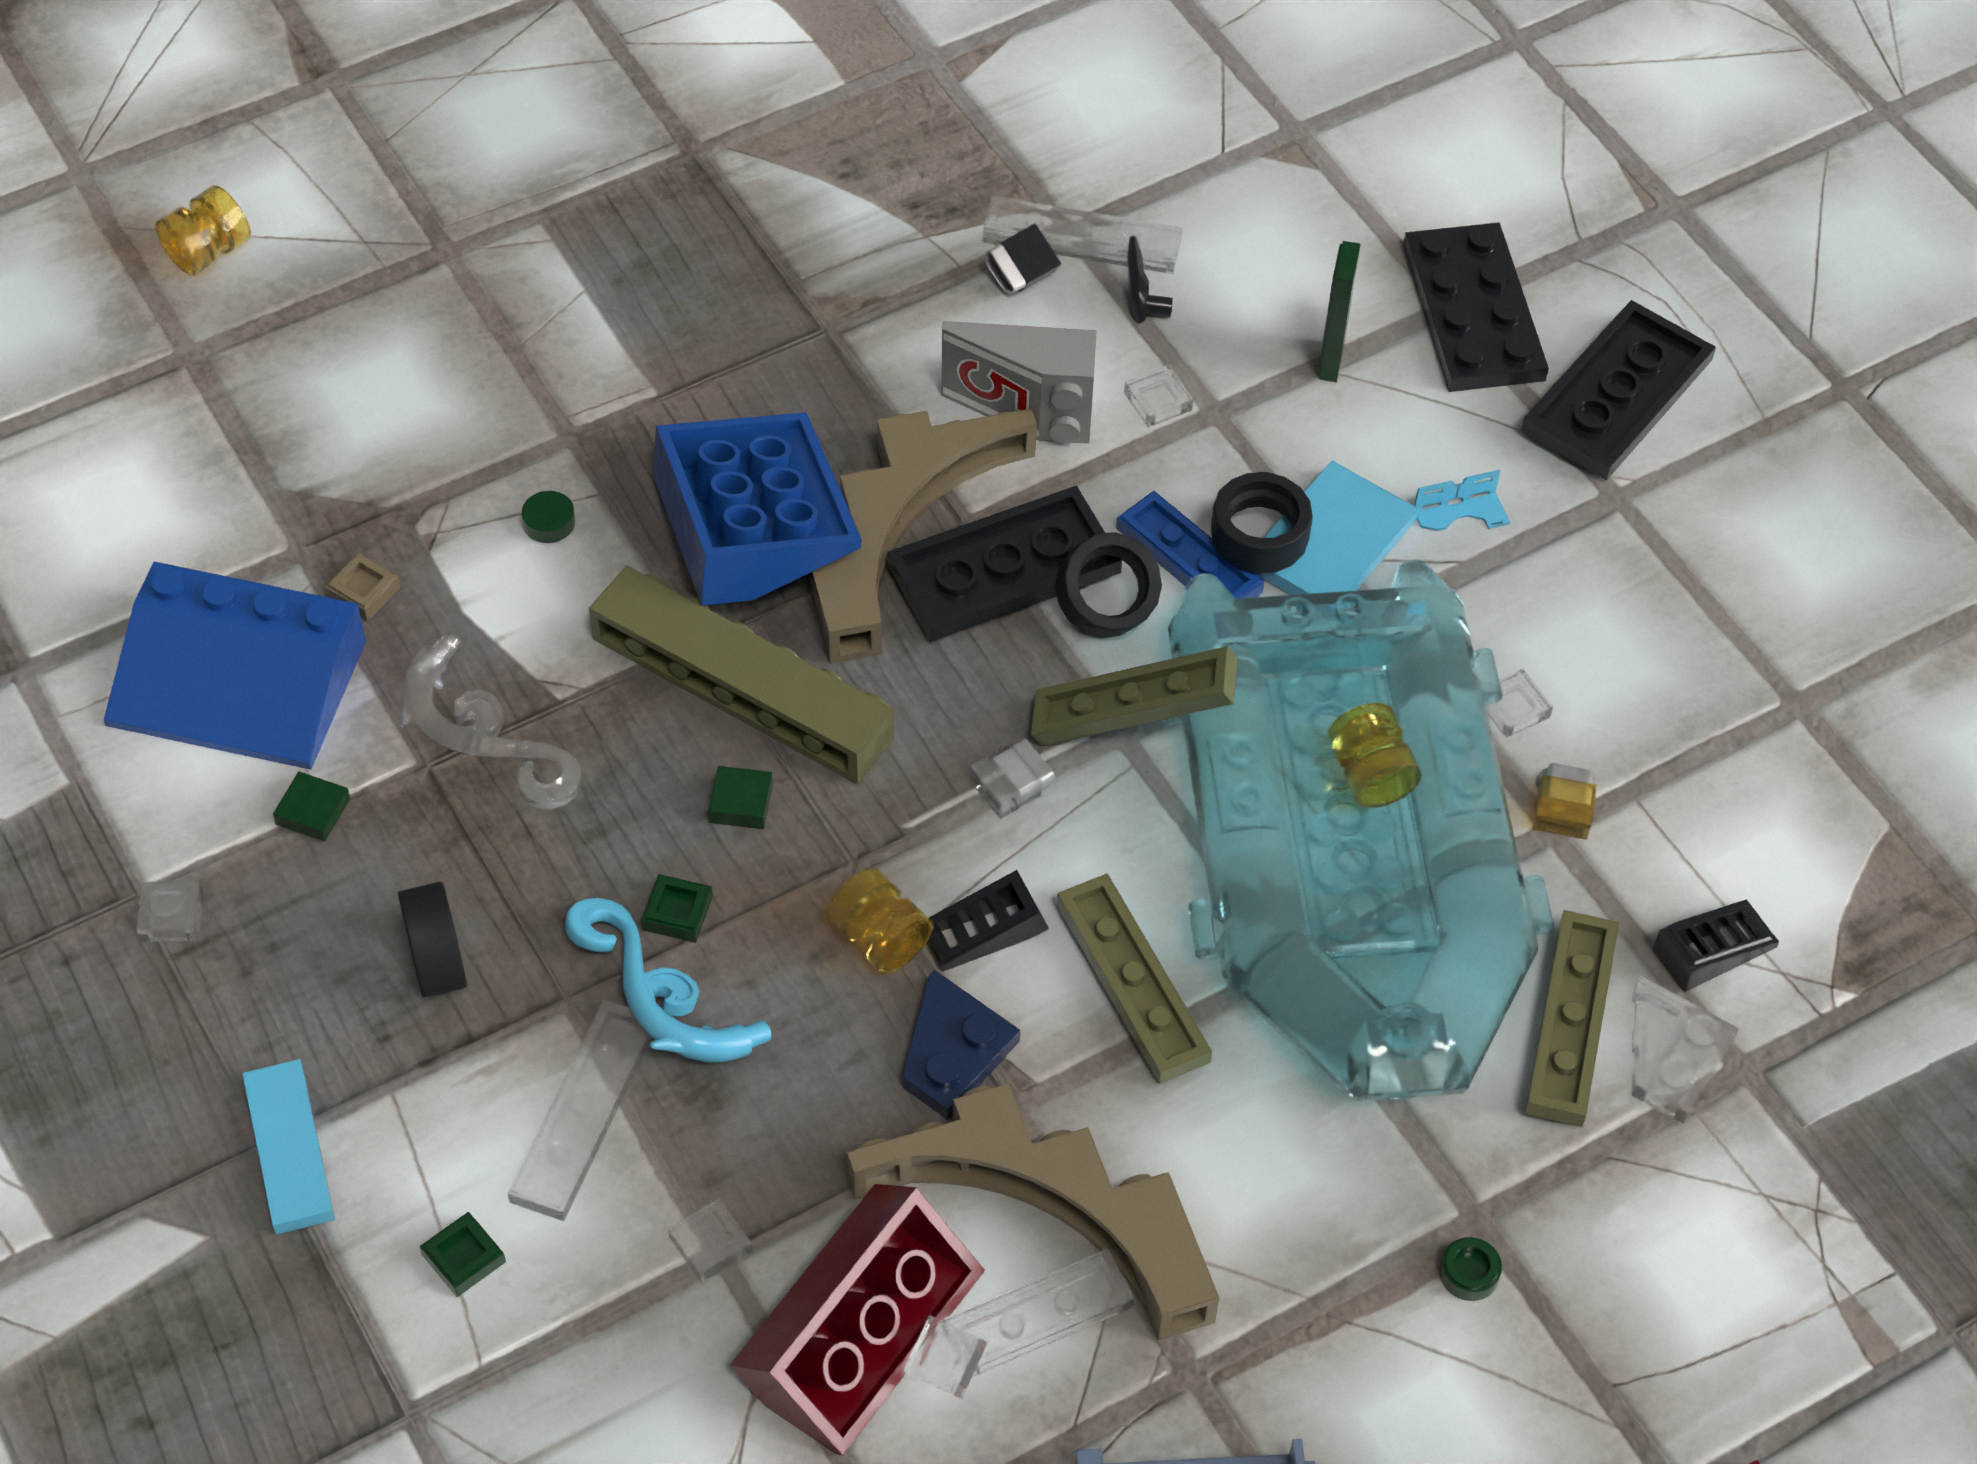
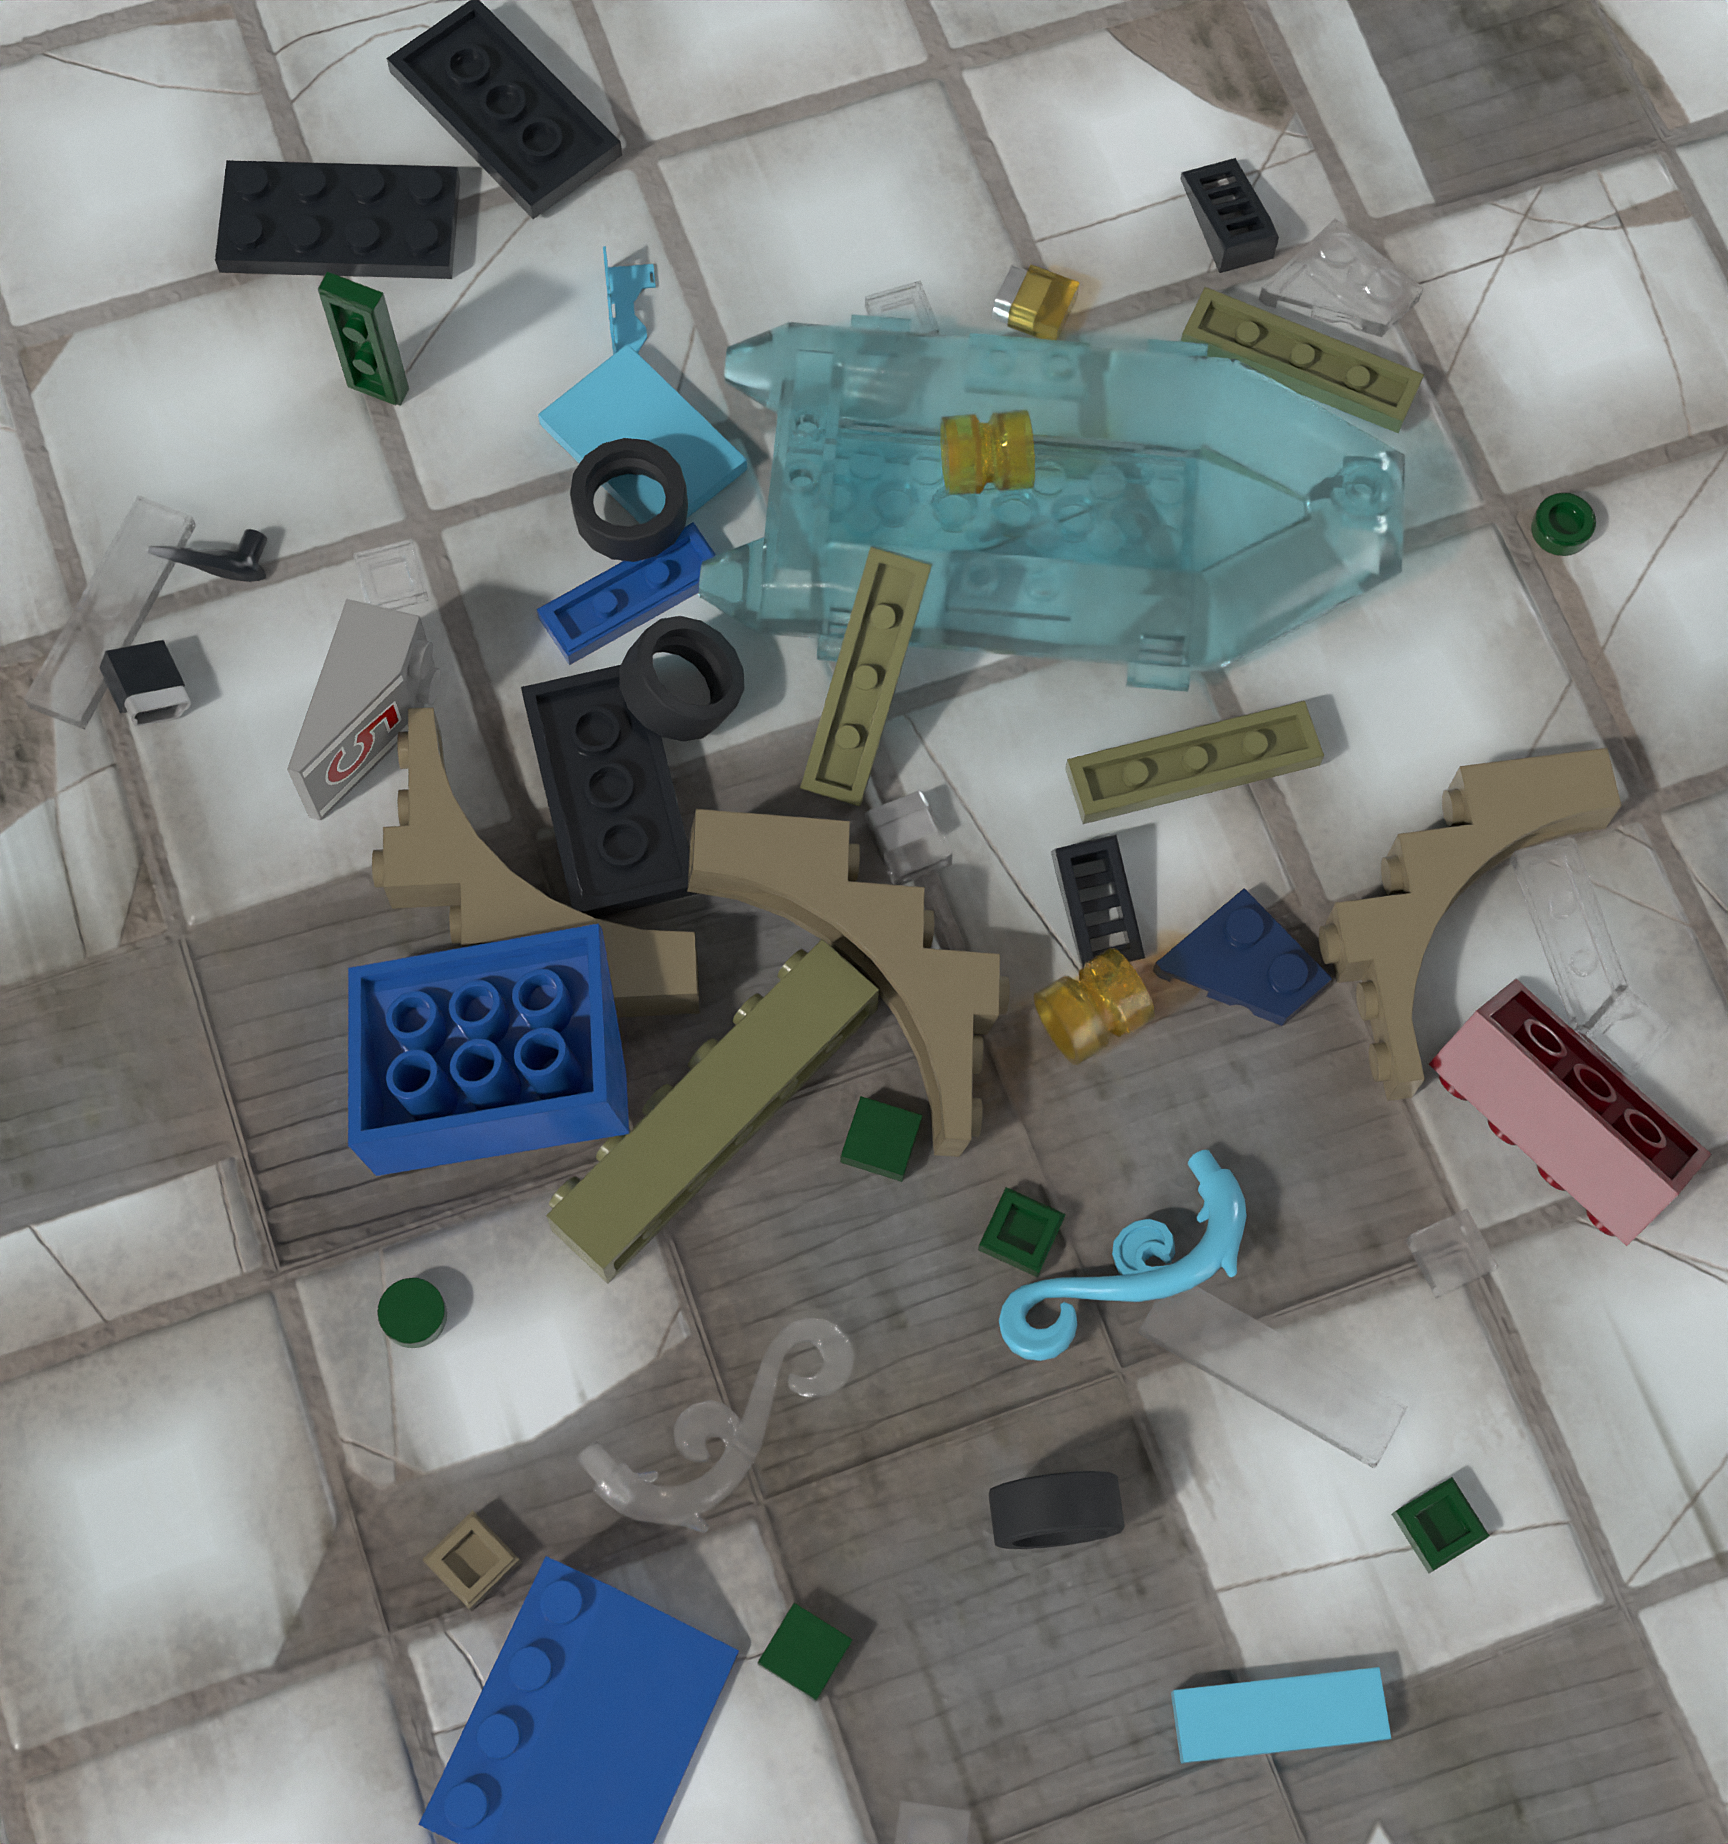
camera: 80 degrees left, 15 degrees up
(911, 760) = (810, 878): none -> dark tan arch

